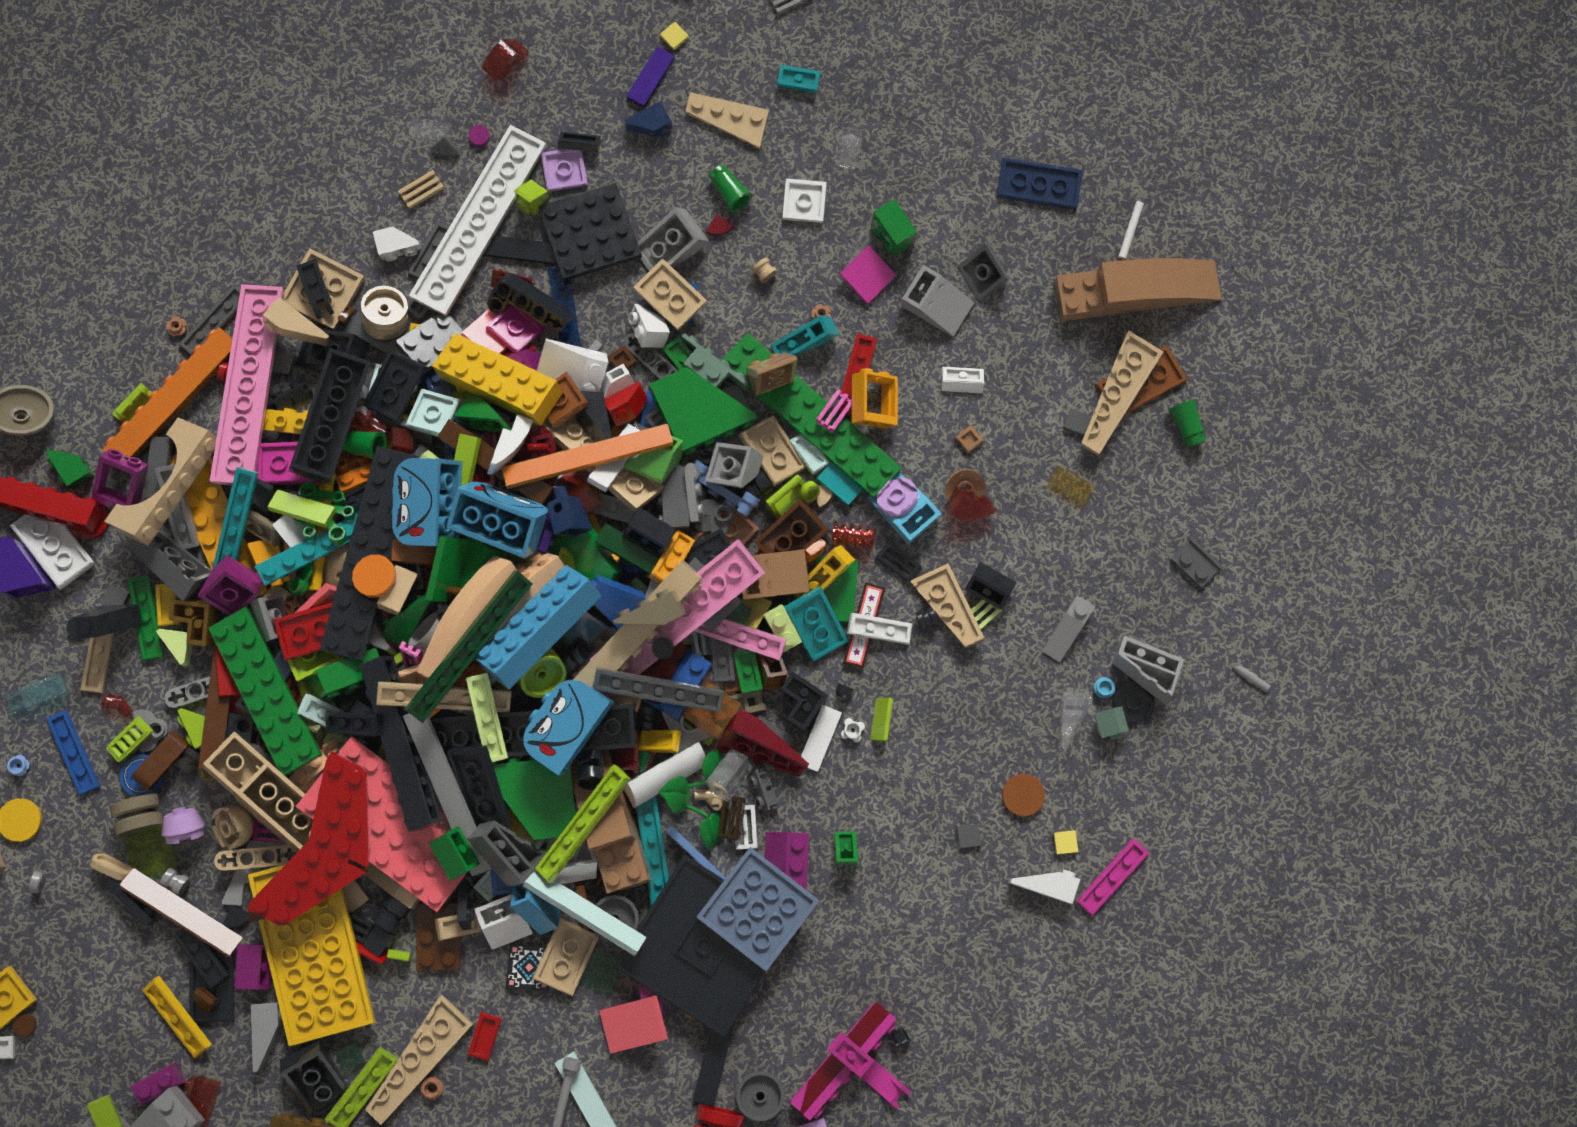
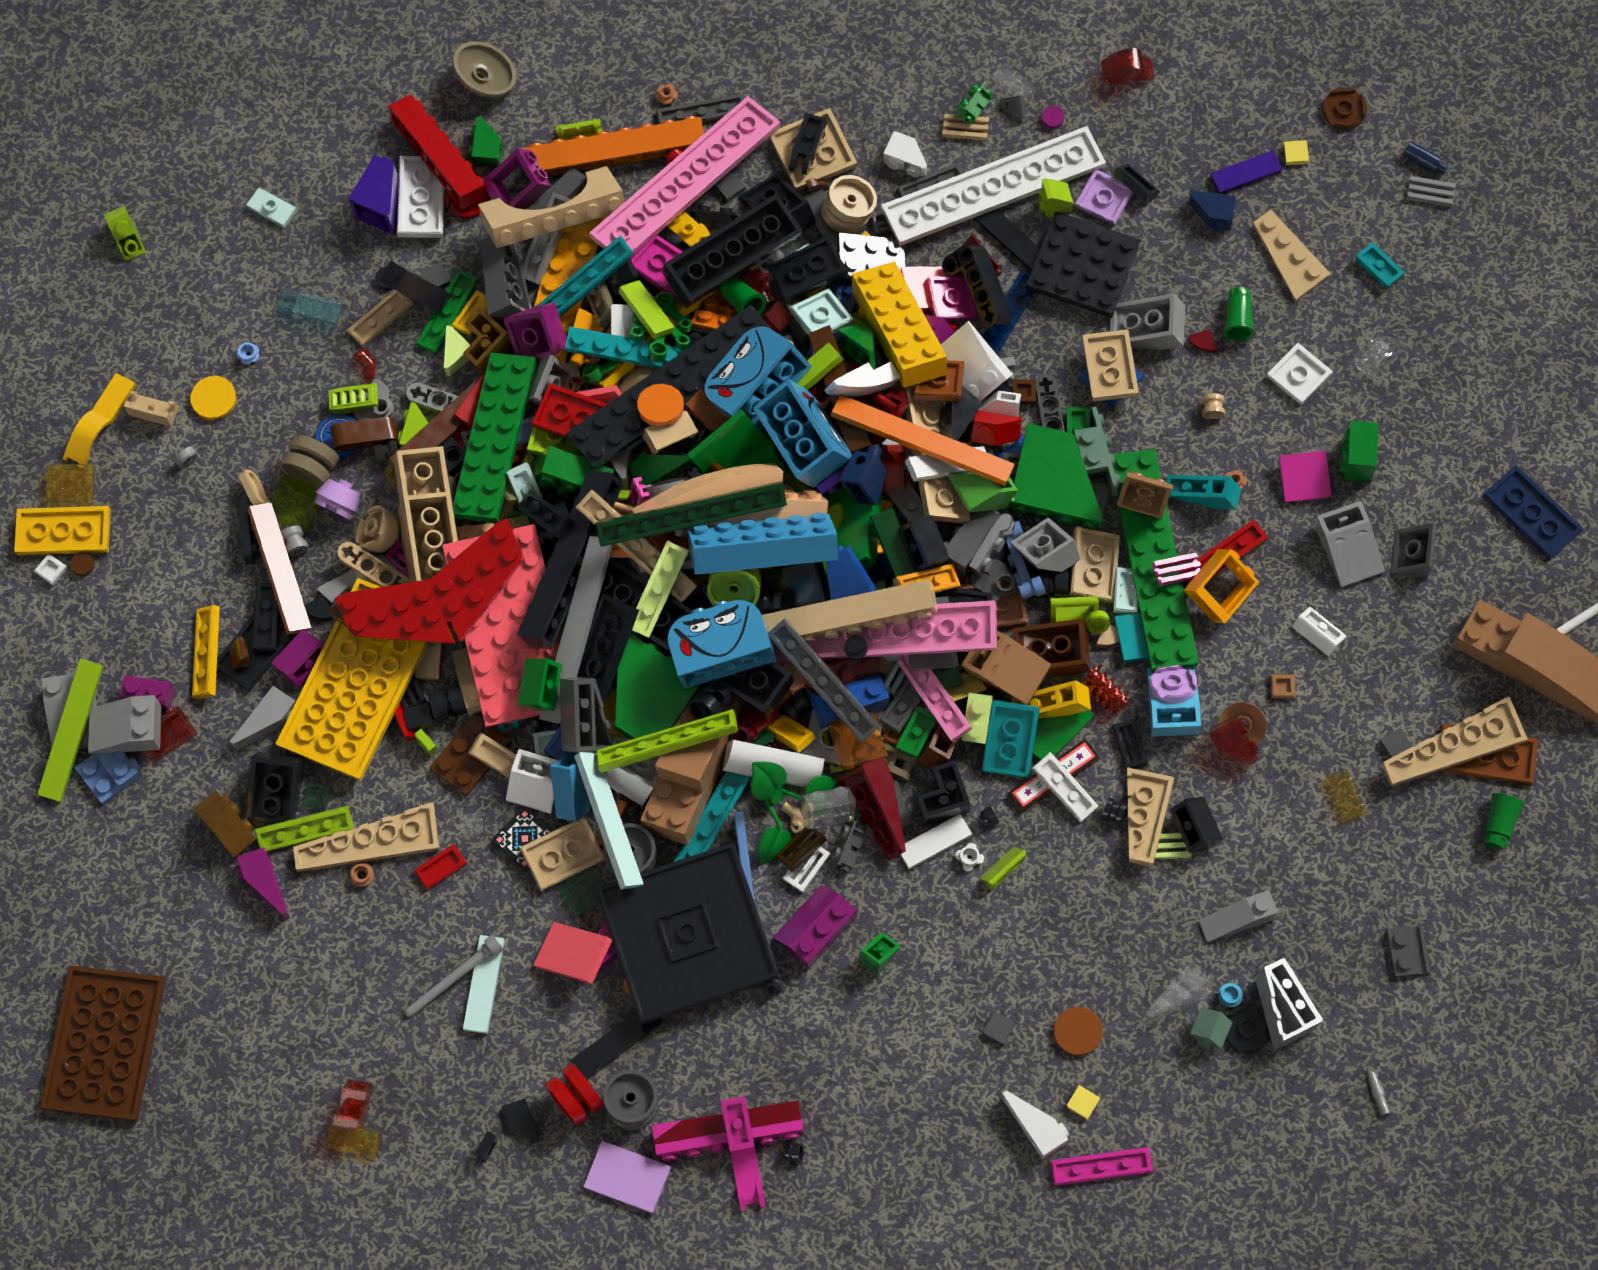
camera: 50 degrees right, 10 degrees down
(73, 752) = (299, 376): blue tile -> none
(291, 324) = (761, 154): tan slope -> none
(412, 160) = (977, 96): none -> green hinge
(465, 911) = (514, 740): black plate -> none
(648, 327) = (1068, 380): white slope -> none
(657, 612) = (878, 607): dark tan slope -> none
(758, 909) = (758, 934): sand blue plate -> none
(815, 550) = (1060, 674): orange tile -> none

